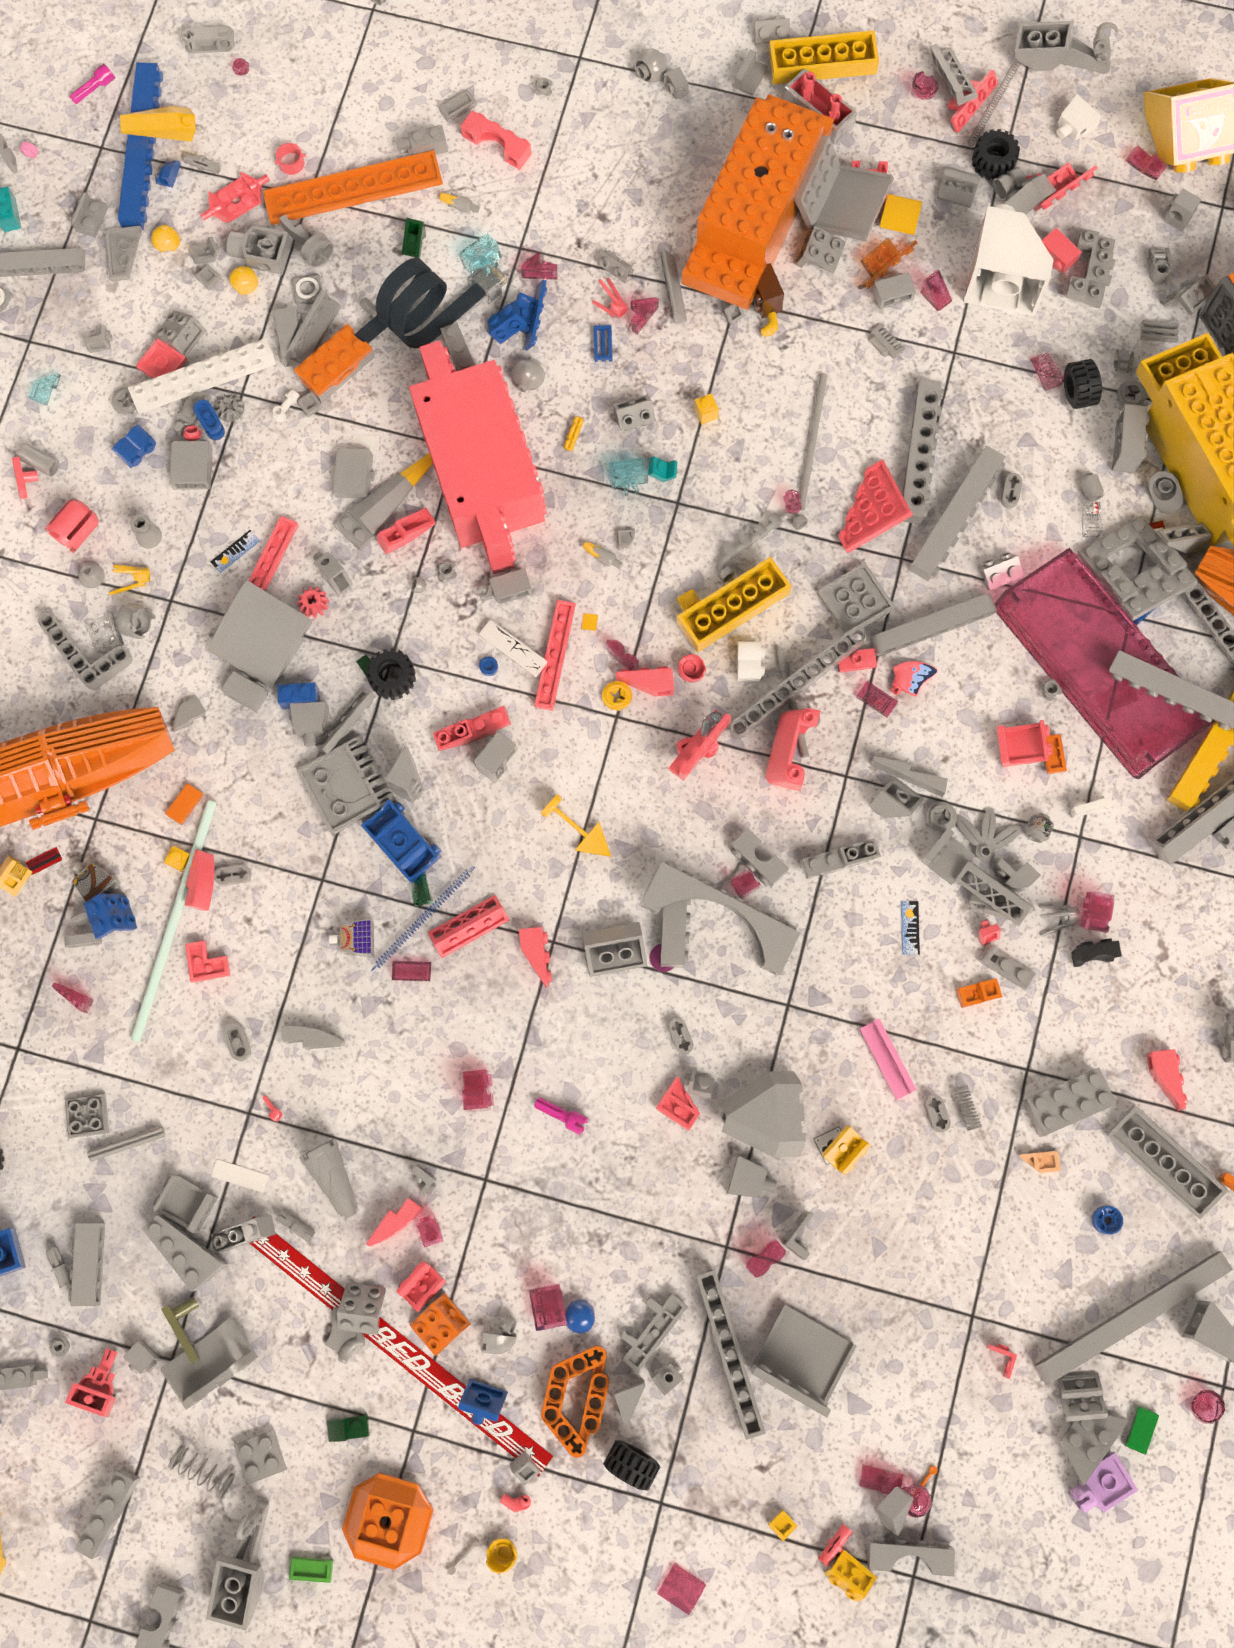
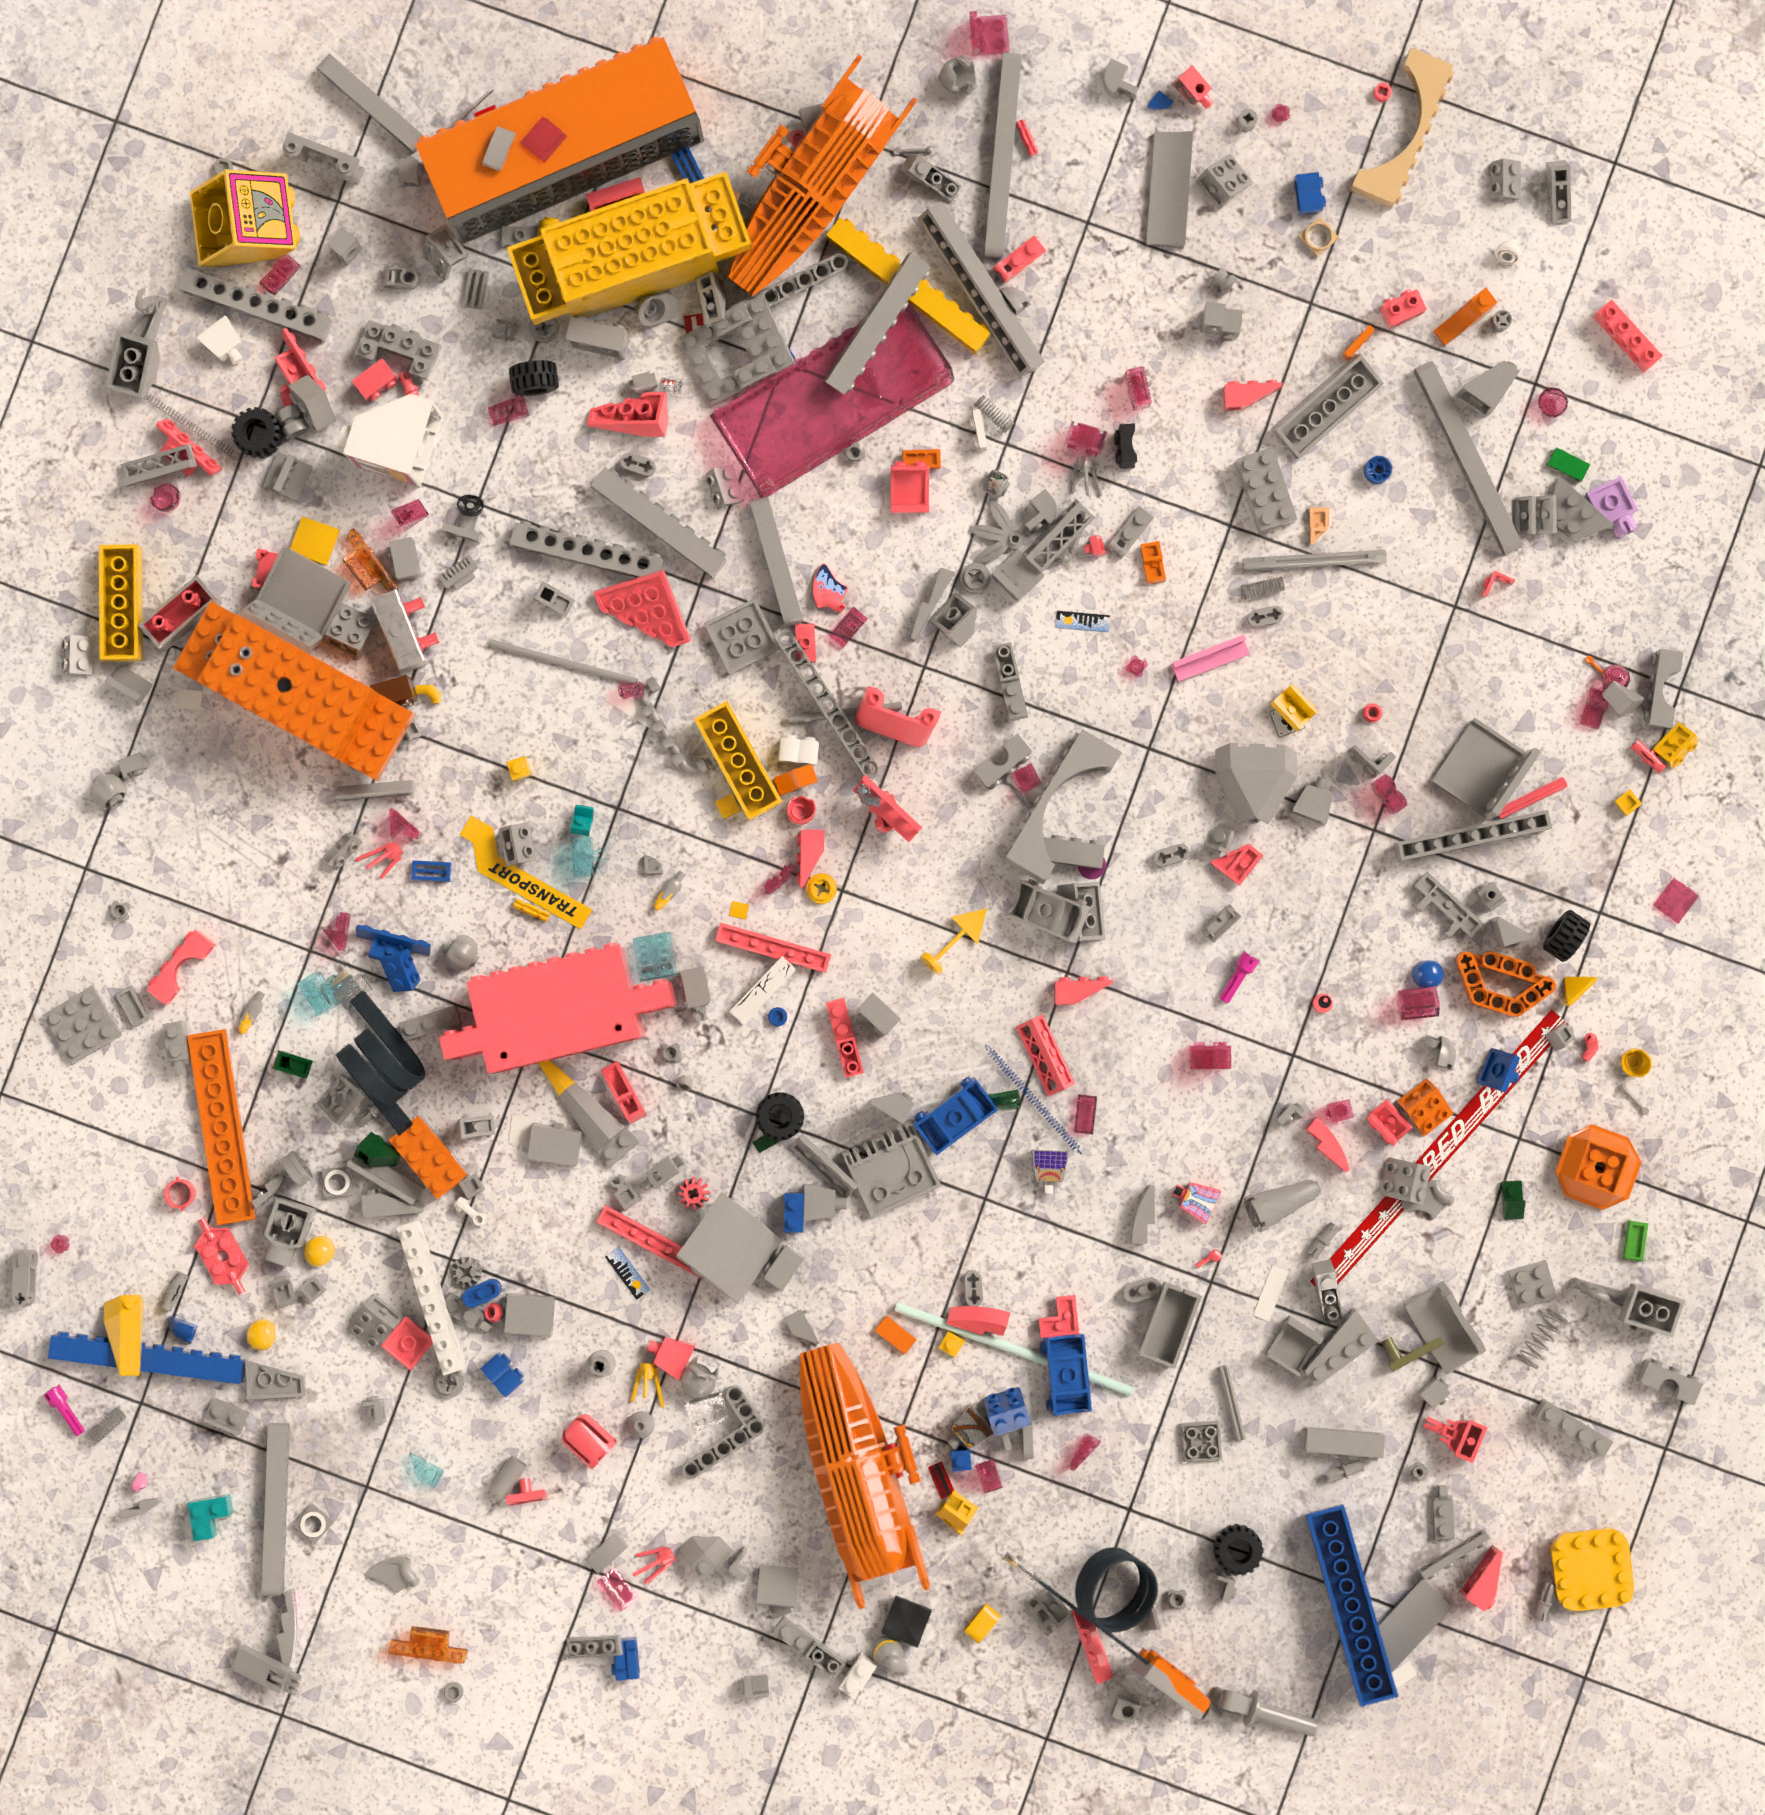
camera: 85 degrees left, 10 degrees up
(48, 904) = (988, 1476): none -> clear pink slope
(61, 875) = (961, 1459): none -> blue brick
(81, 114) = (90, 1438): none -> light grey piece
(148, 972) = (1067, 1374): none -> blue piece
(156, 595) = (671, 1355): none -> coral torso
(201, 1071) = (1169, 1325): none -> light grey piece
(310, 541) = (626, 1194): none -> light grey plate
(330, 1090) = (1197, 1200): none -> torso
(336, 315) = (376, 1152): none -> dark green slope
(364, 400) = (476, 1126): none -> light grey slope
(377, 273) = (324, 1102): none -> light grey piece
(438, 67) = (82, 1025): none -> light grey plate
(537, 546) = (654, 956): none -> clear light blue bracket
(541, 1205) = (1322, 1003): none -> coral tile
(578, 1481) = (1575, 987): none -> yellow slope
(601, 420) = (518, 880): none -> yellow sticker
(611, 913) = (1049, 911): none -> light grey piece
(620, 1097) = (1217, 927): none -> light grey hinge
(721, 660) = (795, 779): none -> orange slope
(777, 1416) = (1533, 797): none -> coral axle
(825, 290) = (398, 630): none -> flat silver piece
(856, 1235) = (1378, 713): none -> coral plate
(872, 422) = (553, 599): none -> light grey brick
(876, 982) = (1138, 672): none -> clear pink plate
(938, 344) = (466, 519): none -> light grey piece
(1003, 1160) = (1314, 560): none -> light grey piece
(1058, 281) = (409, 387): none -> coral pin
(1058, 487) = (637, 416): none -> coral wedge
(1121, 116) = (192, 278): none -> light grey brick
(1121, 806) = (1005, 428): none -> light grey piece
(1157, 961) = (1138, 388): none -> clear pink brick

